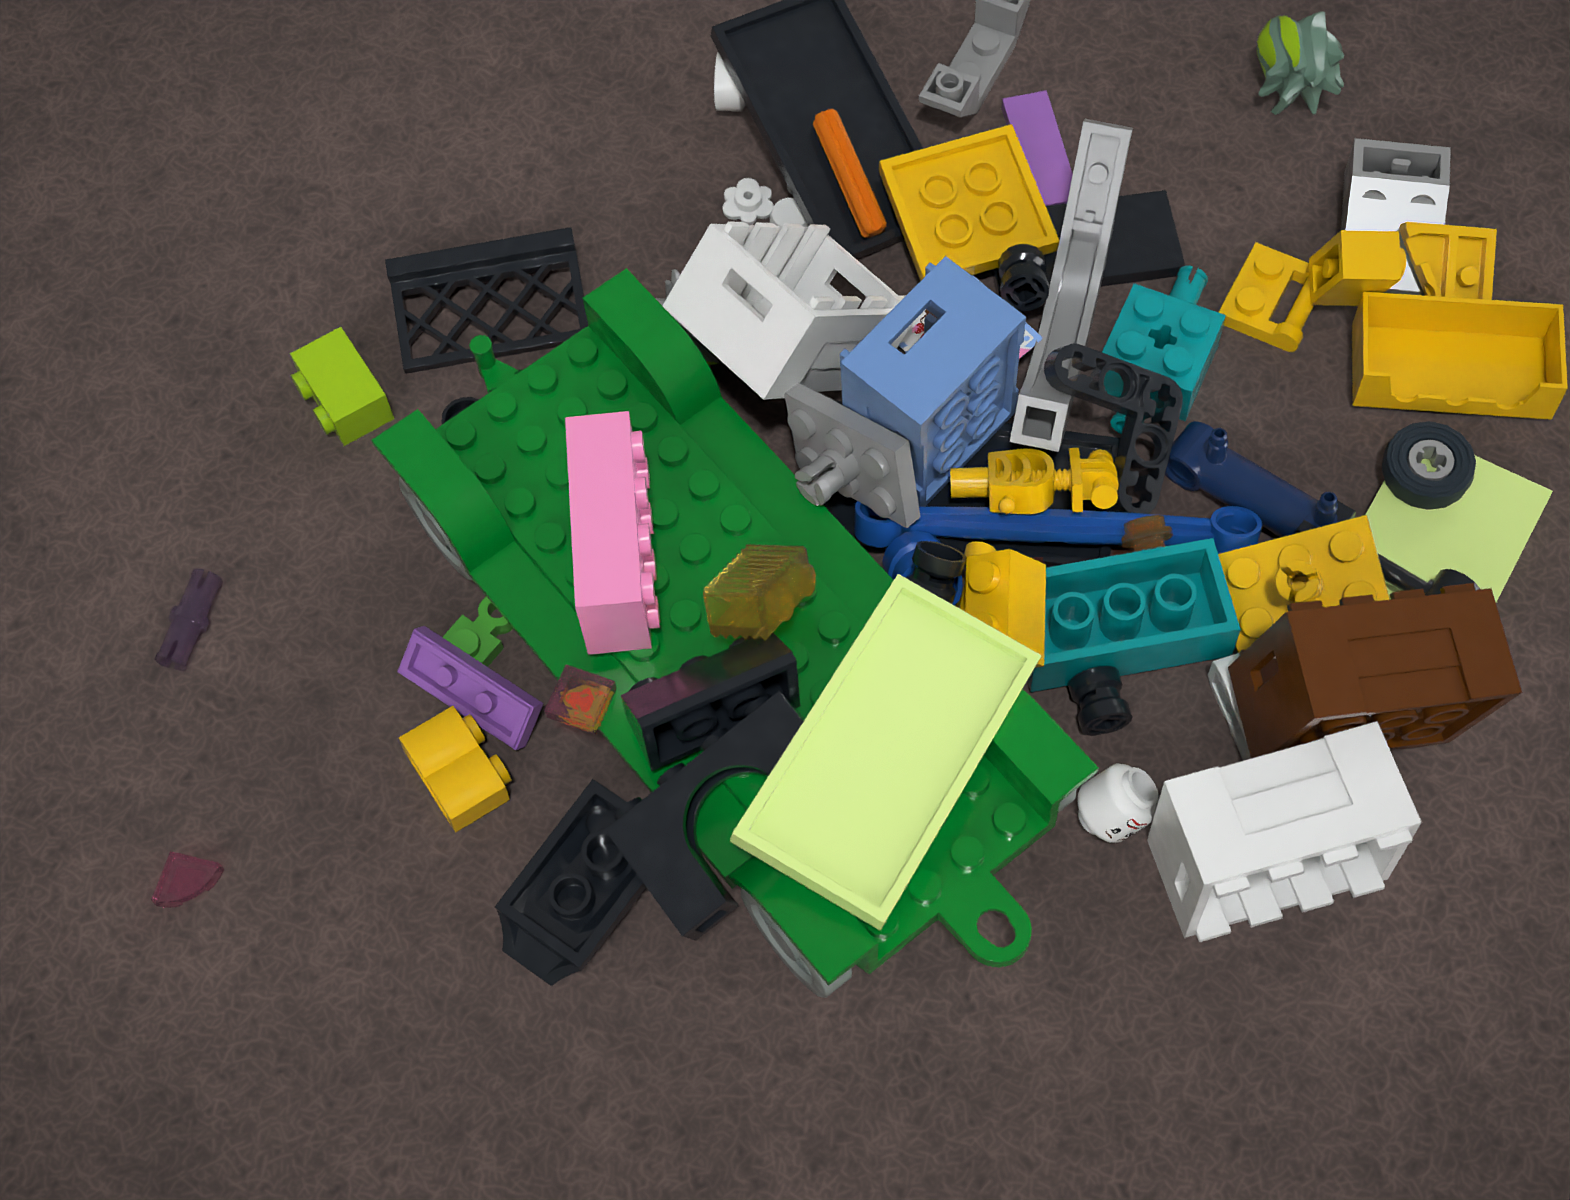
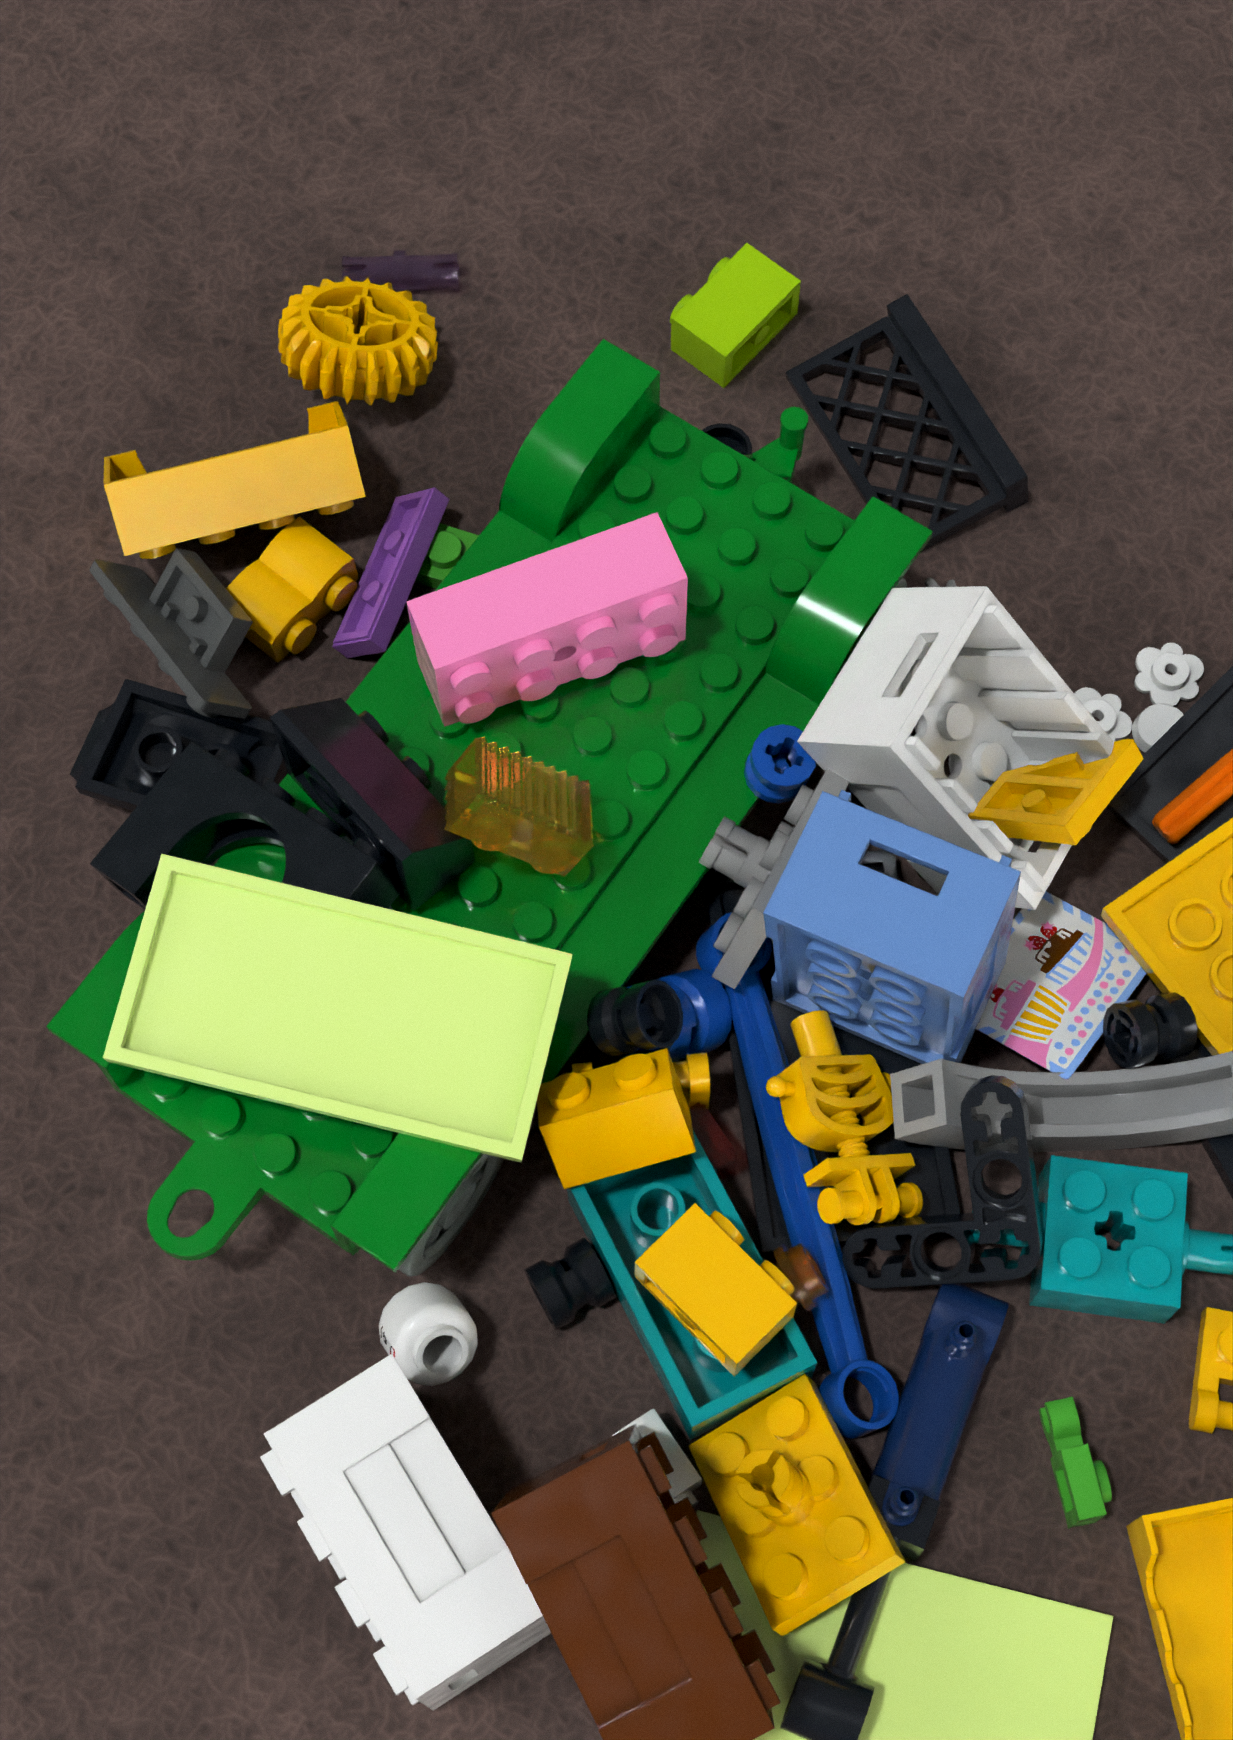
camera: 70 degrees right, 5 degrees up
(185, 879) = (103, 378): clear pink tile -> none
(250, 656) = (357, 340): none -> yellow gear
(367, 716) = (235, 488): none -> yellow piece
(463, 840) = (186, 624): none -> dark grey bracket
(580, 699) = (366, 673): tile -> none
(768, 440) = (772, 777): none -> blue wheel
(847, 262) = (1058, 797): none -> yellow wing
(1151, 577) = (717, 1287): none -> yellow brick
(1313, 420) = (1080, 1481): none -> bright green plate
(1447, 453) = (1081, 1668): black bush -> none

